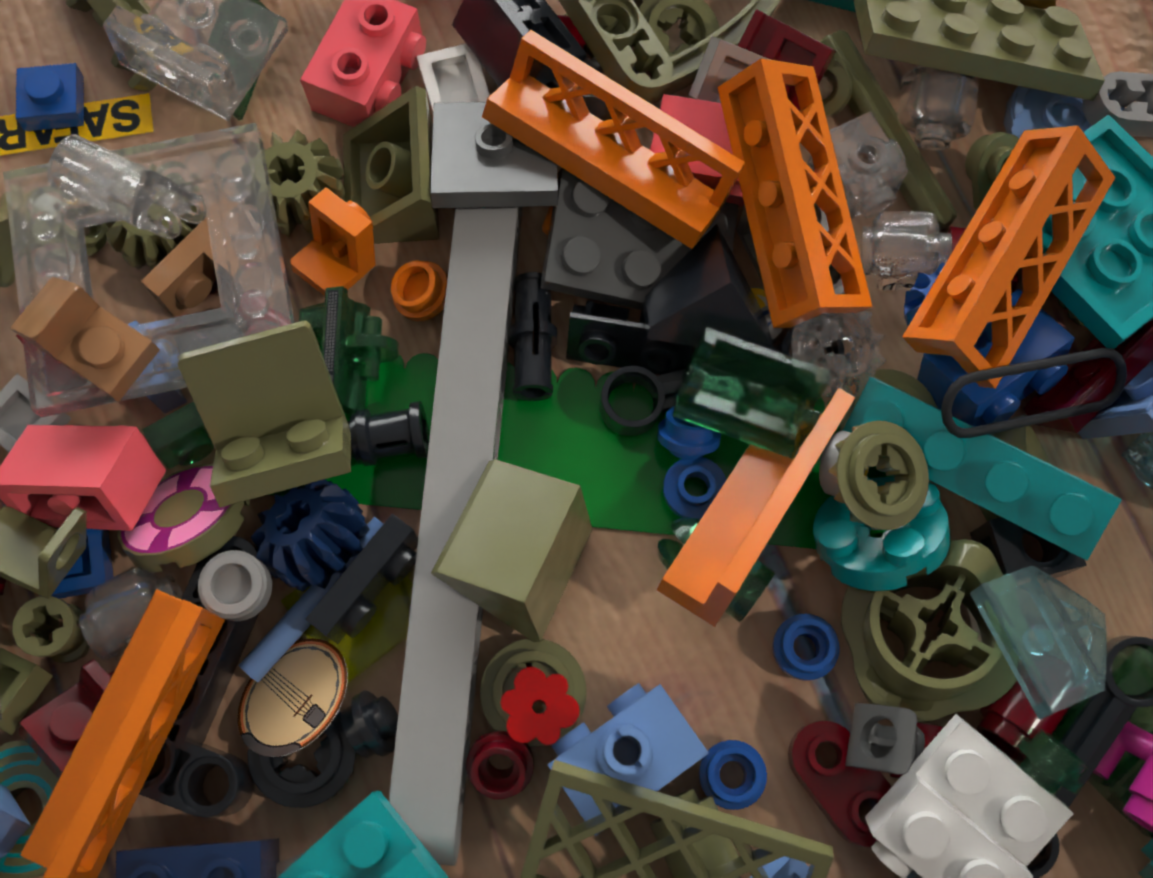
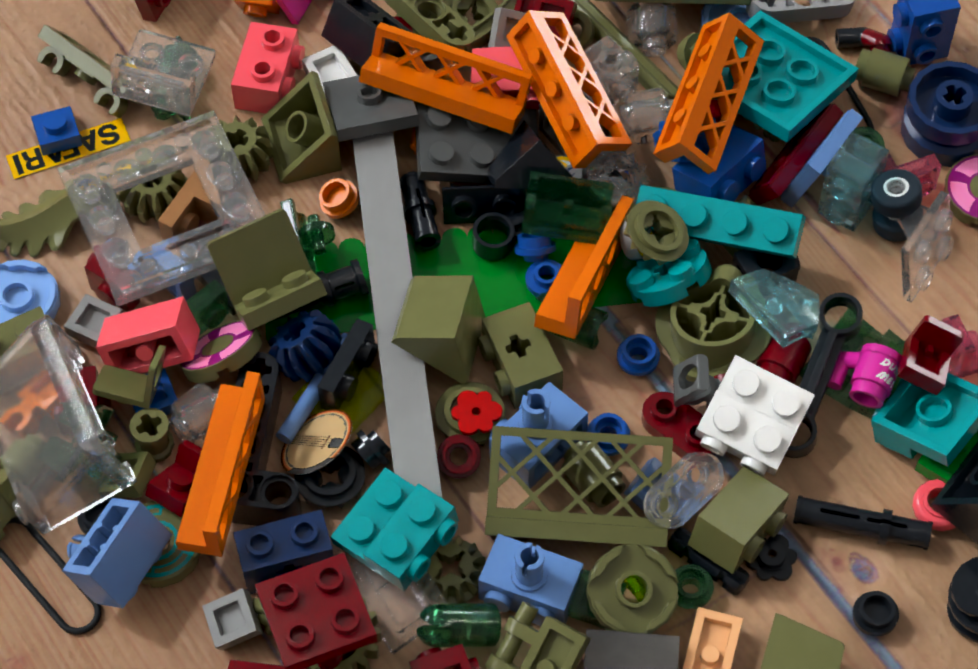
camera: 10 degrees left, 15 degrees down
(85, 337) = (136, 247): medium nougat slope -> none
(122, 187) = (143, 158): clear piece -> none
(235, 585) = (274, 373): light grey tile -> none
(340, 245) = (279, 176): orange bracket -> none
(629, 574) = (519, 353): none -> olive brick
(958, 384) = (730, 192): black piece -> none
(1051, 763) = (797, 370): clear green plate -> none

